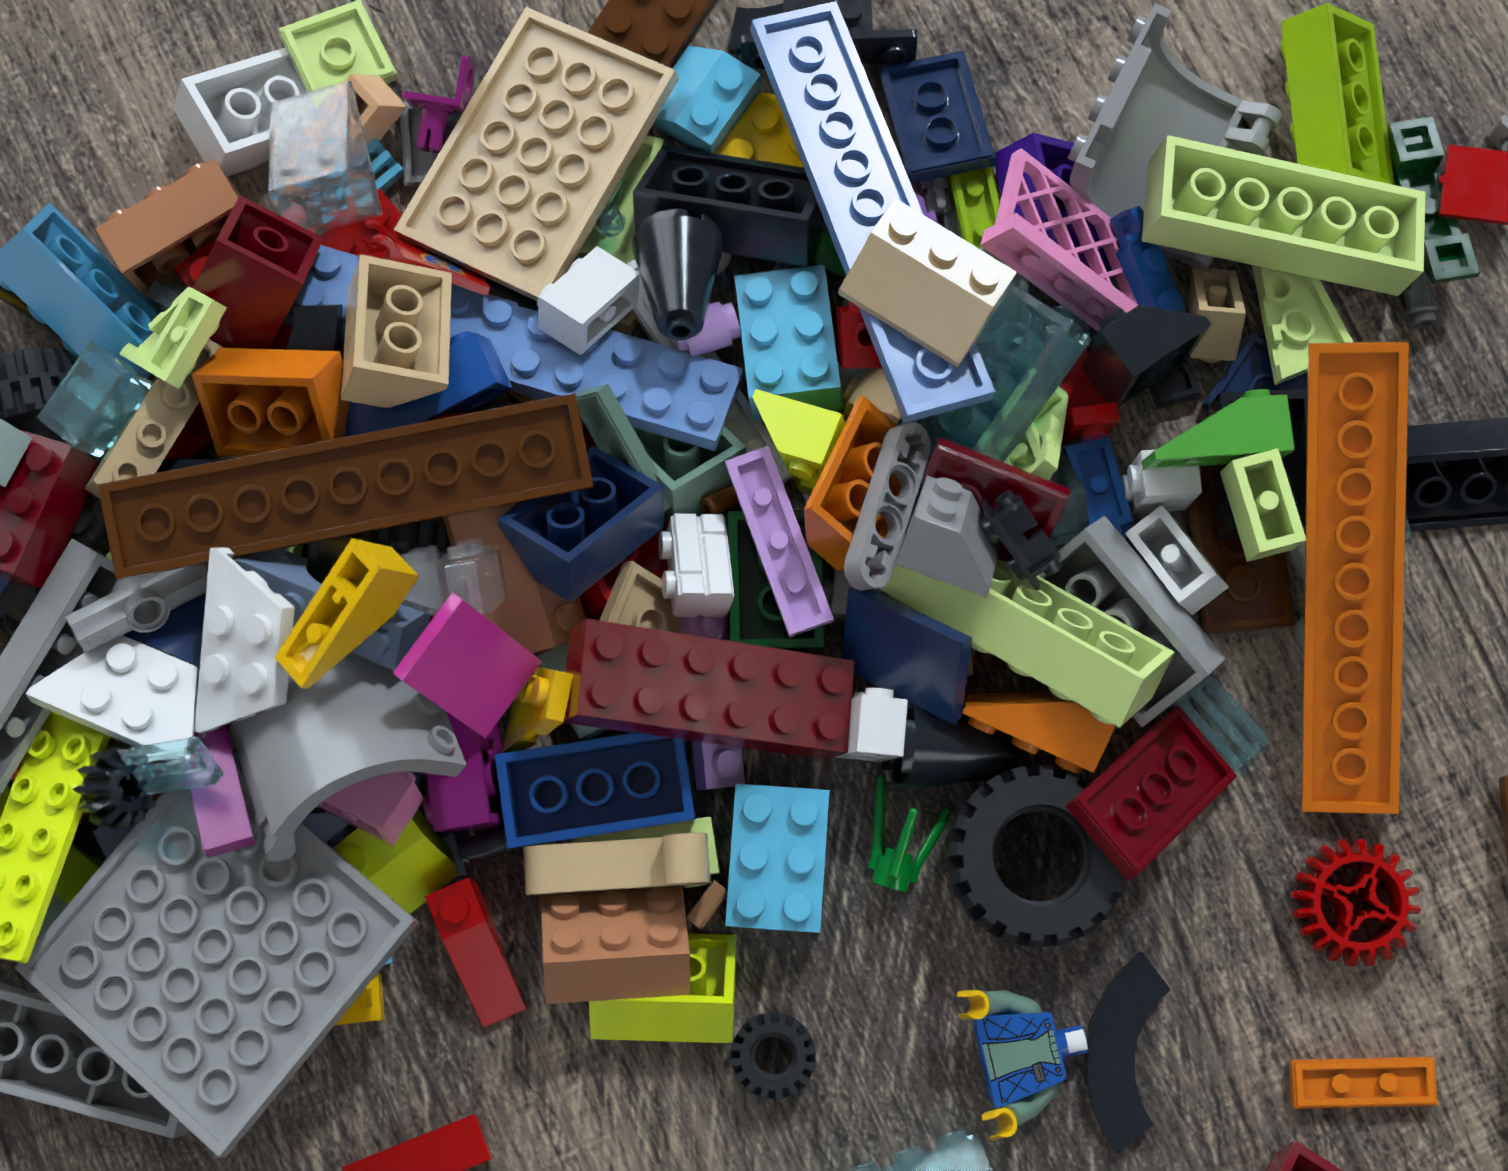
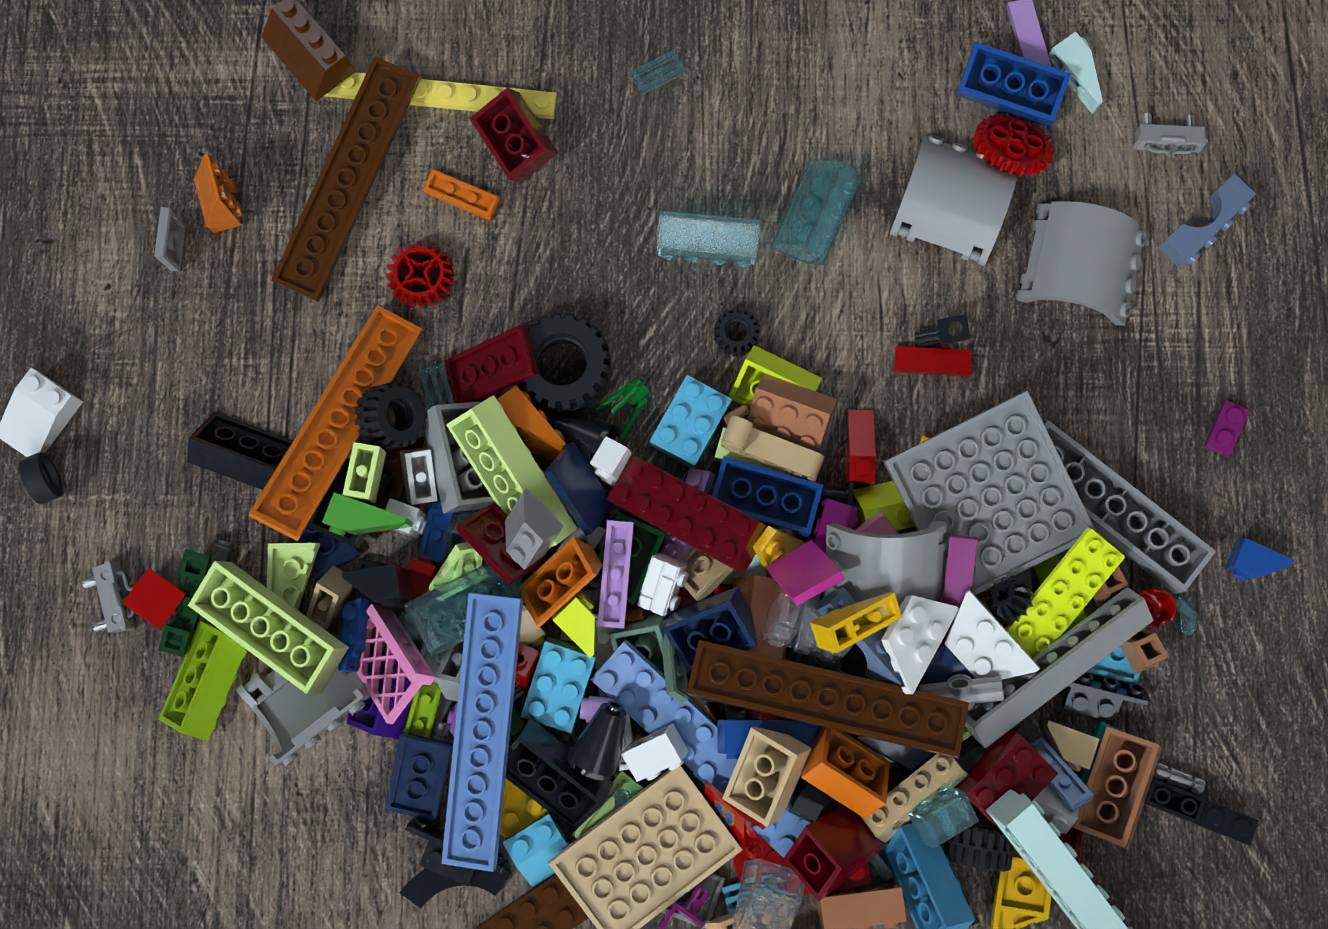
camera: 160 degrees left, 0 degrees up
(177, 337) = (886, 828): yellowish green wing -> none
(179, 771) = (976, 591): clear light blue tile -> none
(893, 509) = (554, 564): light grey beam -> none
(926, 282) = (475, 665): tan slope -> none
(1008, 524) = (496, 524): black hinge -> none
(1019, 1054) = (618, 277): torso -> none
(1112, 1050) = (570, 263): black tile -> none
(1240, 636) = (407, 410): none -> black tyre

